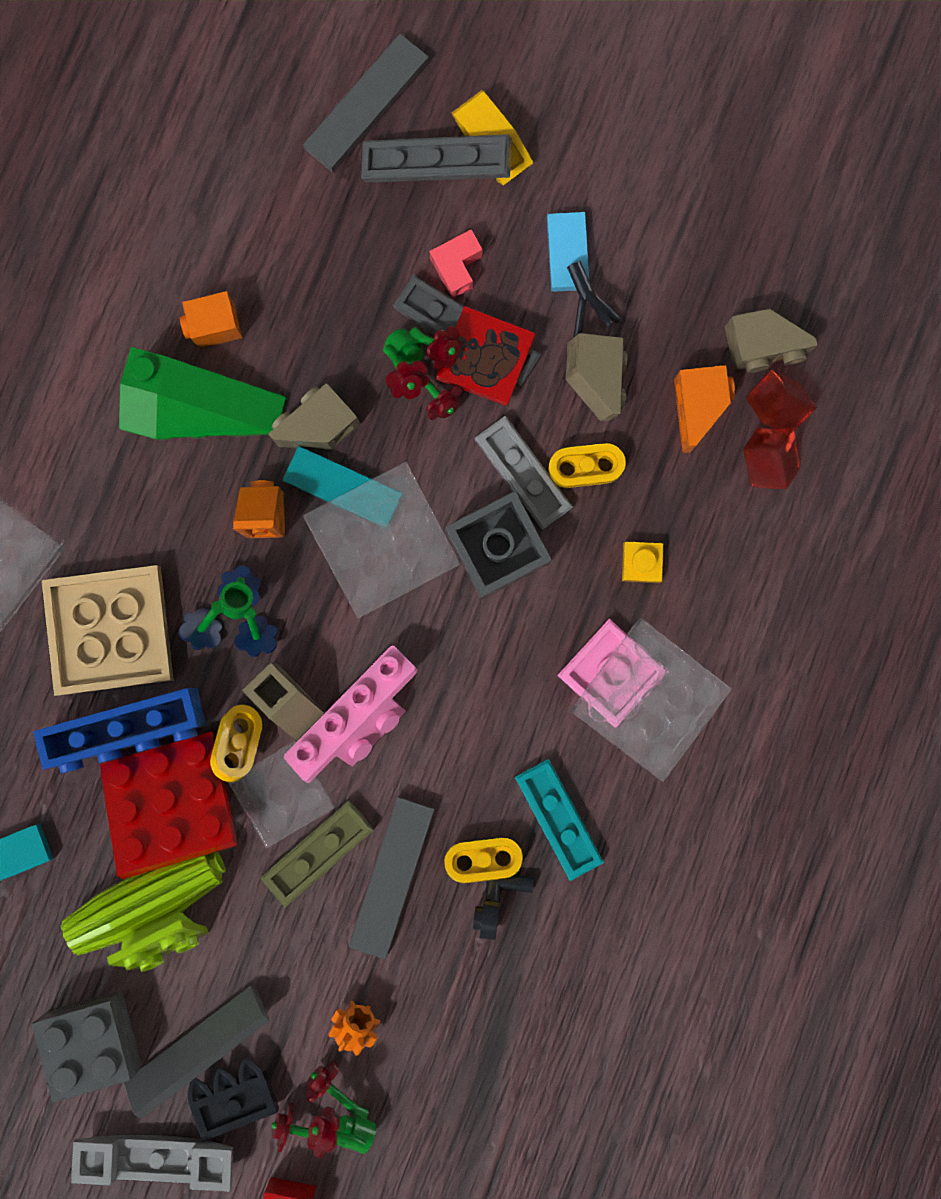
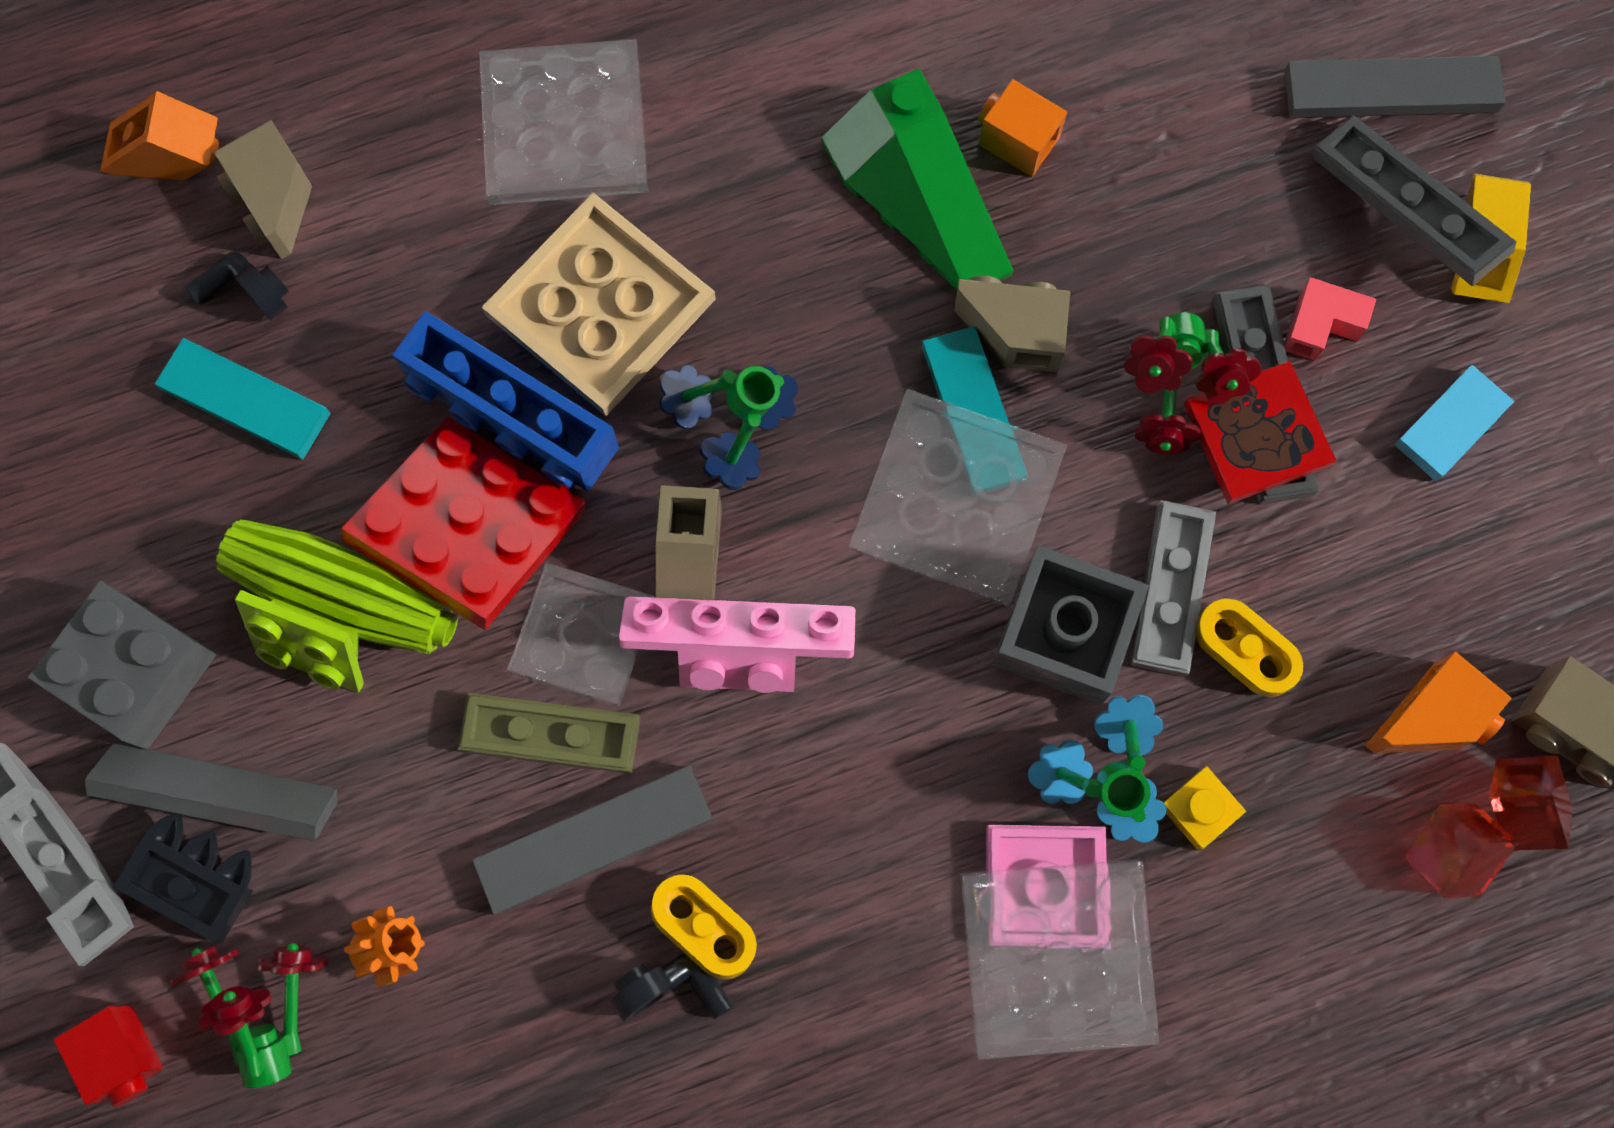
camera: 50 degrees right, 10 degrees down
(234, 745) = (592, 536): yellow plate -> none
(260, 511) = (868, 345): orange slope -> none
(559, 819) = (826, 976): teal tile -> none
(586, 294) = (1431, 479): black plant -> none
(596, 373) = (1359, 564): dark tan slope -> none
(602, 597) = (1124, 792): none -> dark azure plant

